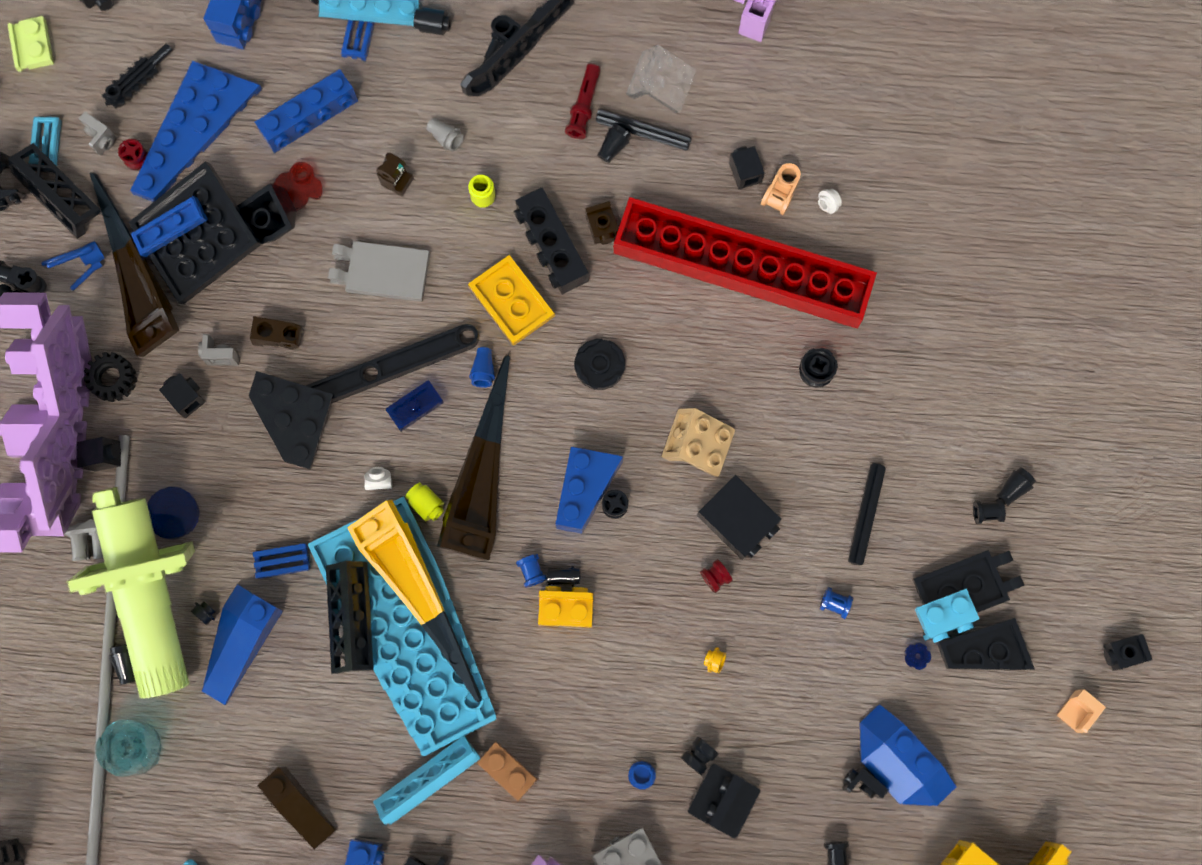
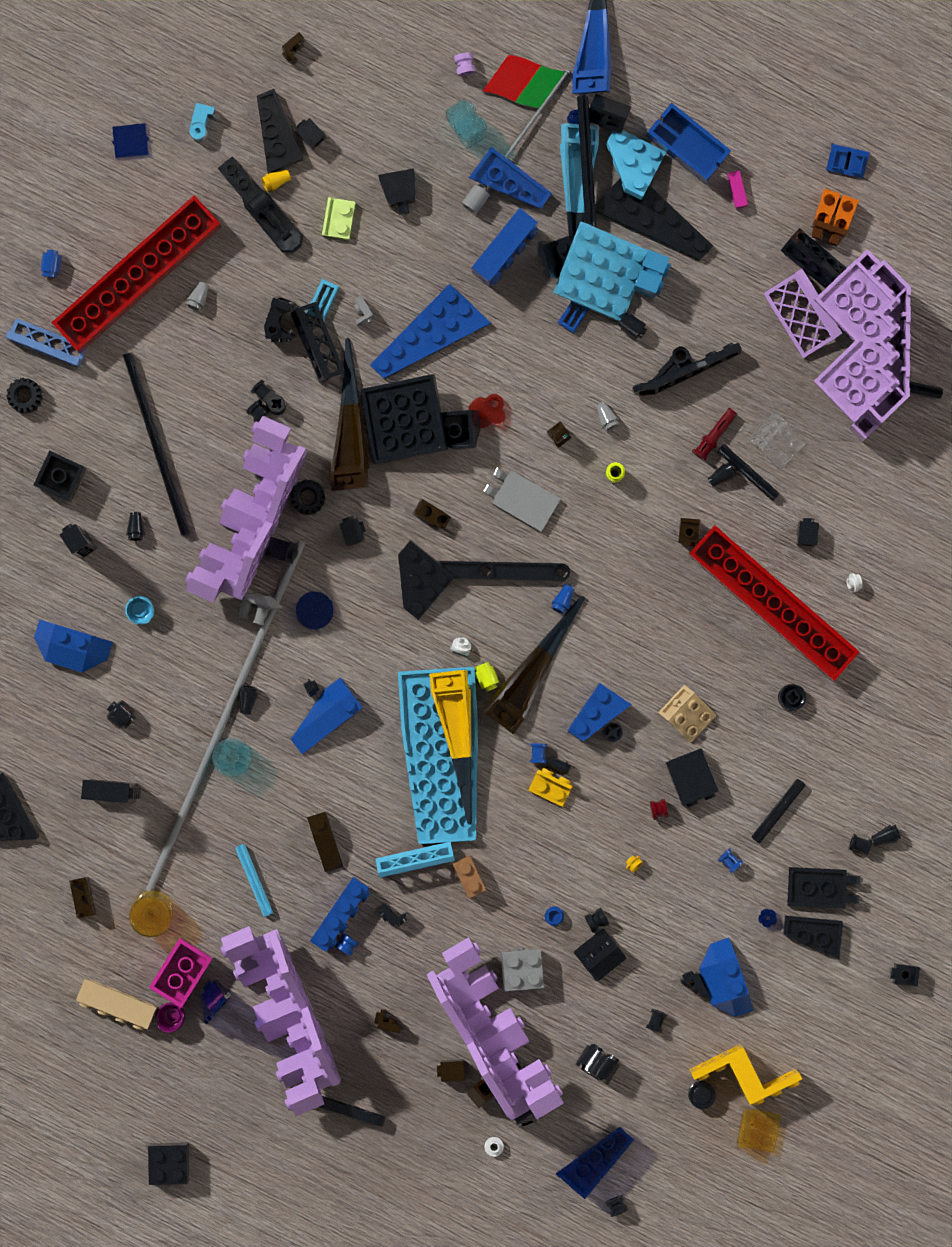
camera: 25 degrees right, 10 degrees up
(89, 254) = (325, 401): blue plant -> none
(129, 149) = (380, 335): dark red wheel -> none
(135, 77) = (406, 278): black piece -> none
(136, 576) = (282, 649): yellowish green piece -> none
(169, 226) = (388, 408): blue tile -> none
(220, 356) = (389, 514): light grey bracket -> none
(258, 564) = (359, 670): blue tile -> none
(306, 111) = (516, 359): blue brick -> none
(353, 616) = (410, 734): black fence -> none
(414, 405) = (506, 606): clear blue plate -> none
(511, 300) = (602, 559): yellow plate -> none
(538, 205) = (651, 499): black brick -> none
(599, 364) = (644, 630): black tile -> none
(781, 192) = (824, 561): light nougat piece -> none
(946, 615) = (798, 900): medium azure bracket -> none
(1081, 711) = (856, 998): light nougat panel -> none

